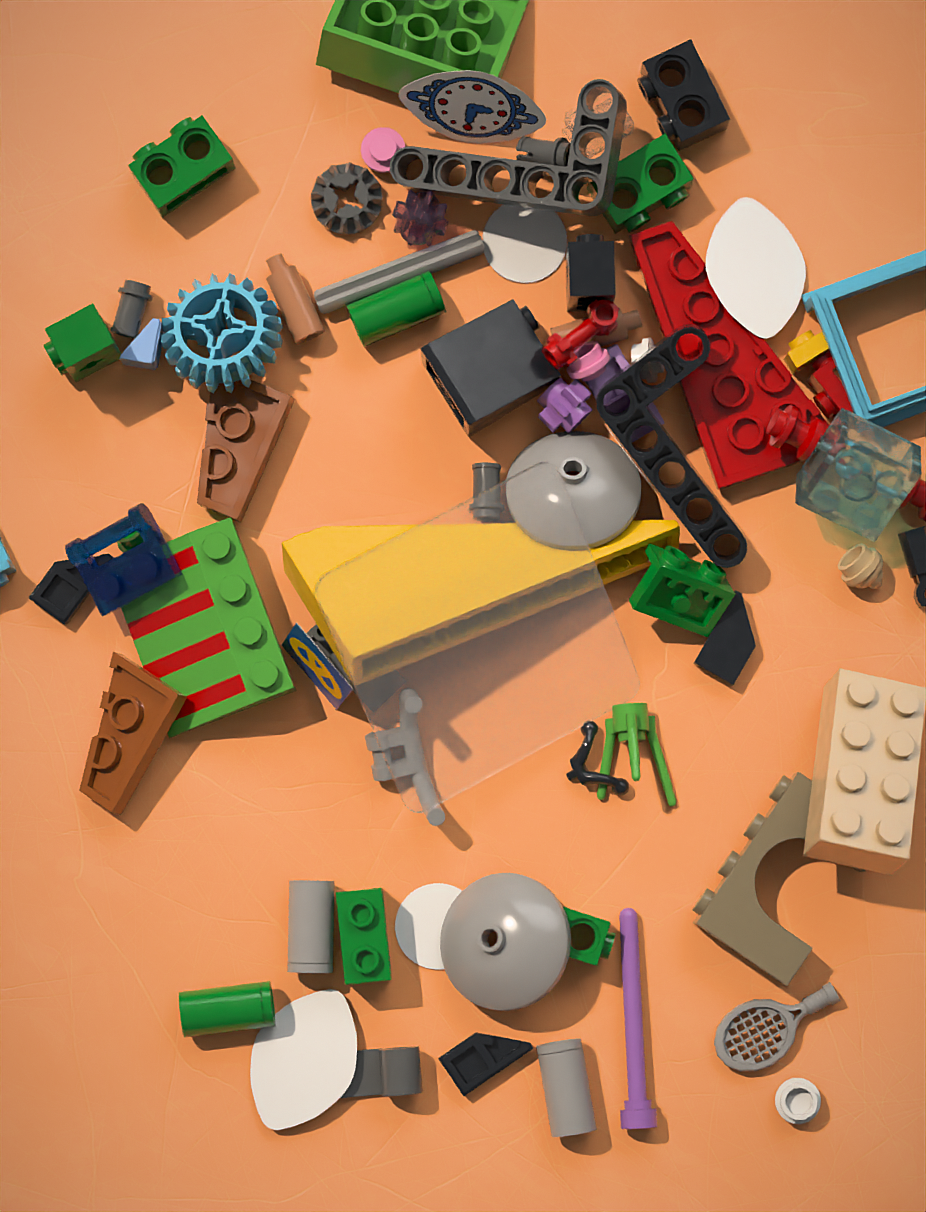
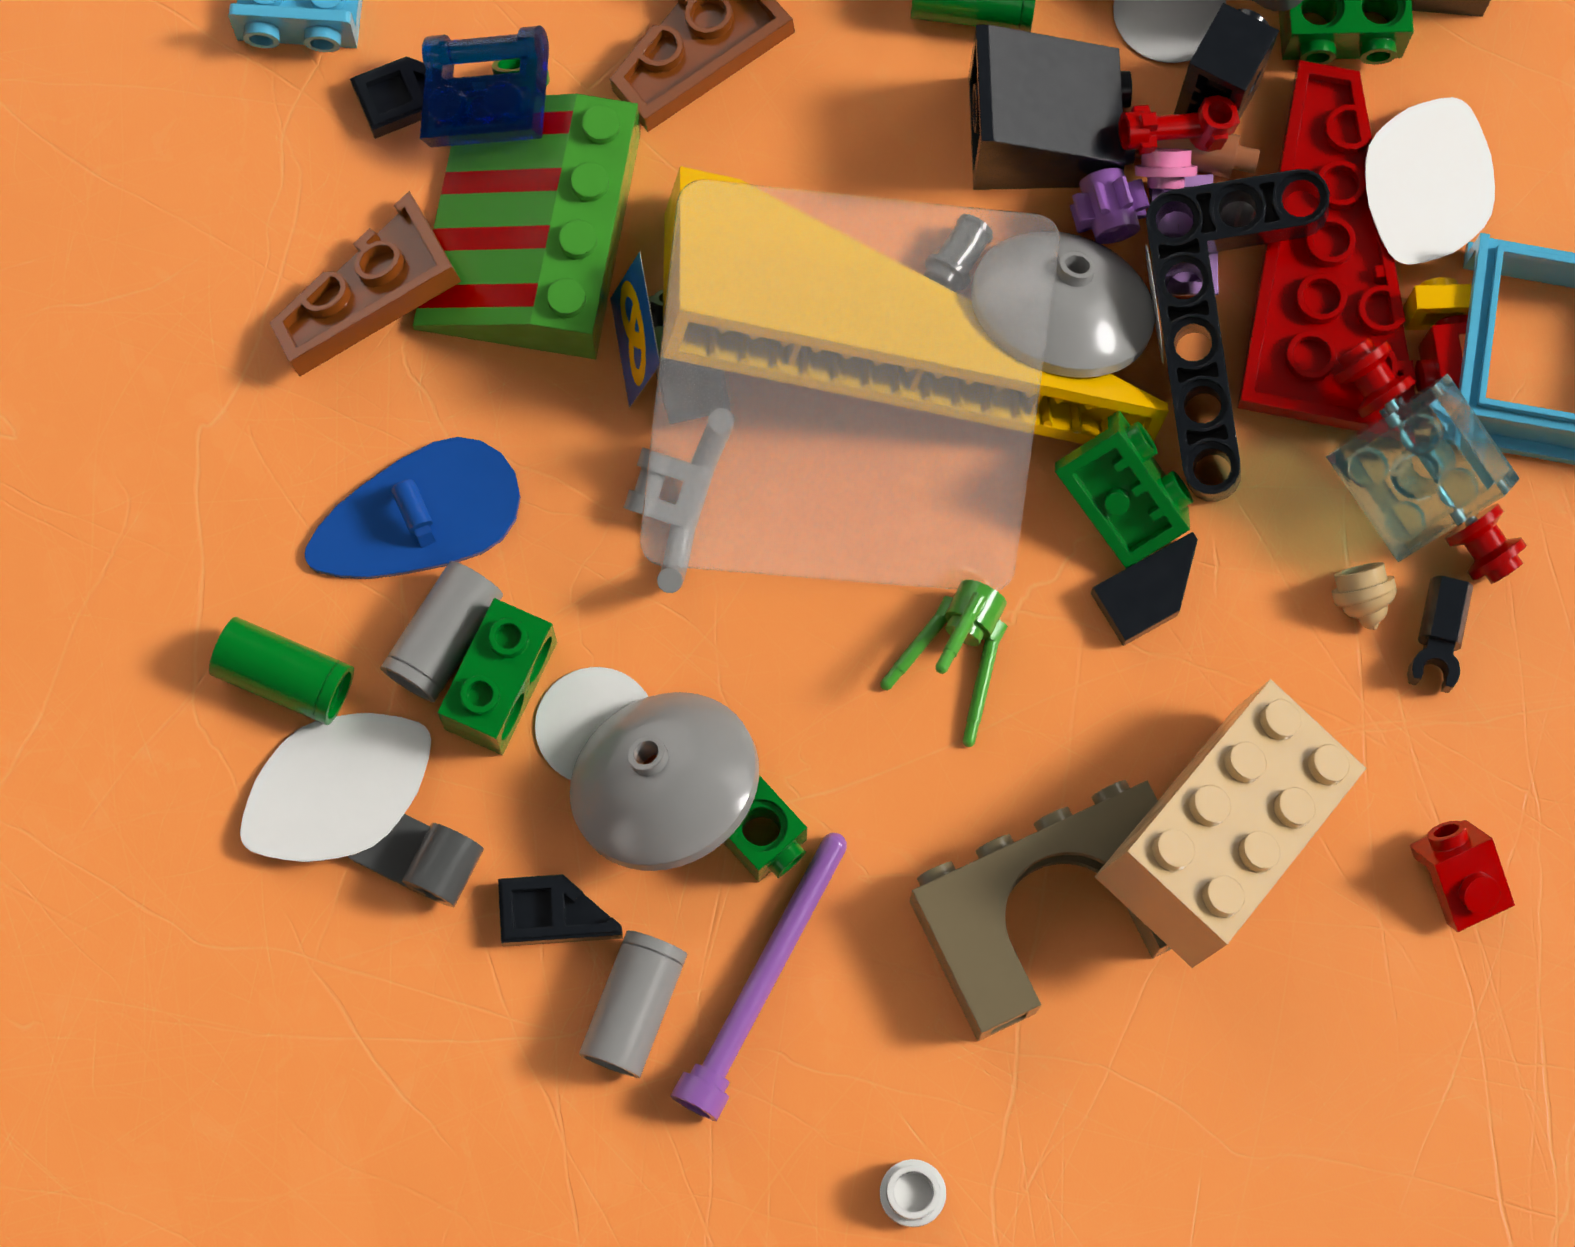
camera: 30 degrees right, 10 degrees down
(248, 855) = (420, 513): none -> blue shield
(619, 785) = (878, 639): black piece -> none
(809, 1005) = (996, 1083): light grey piece -> none

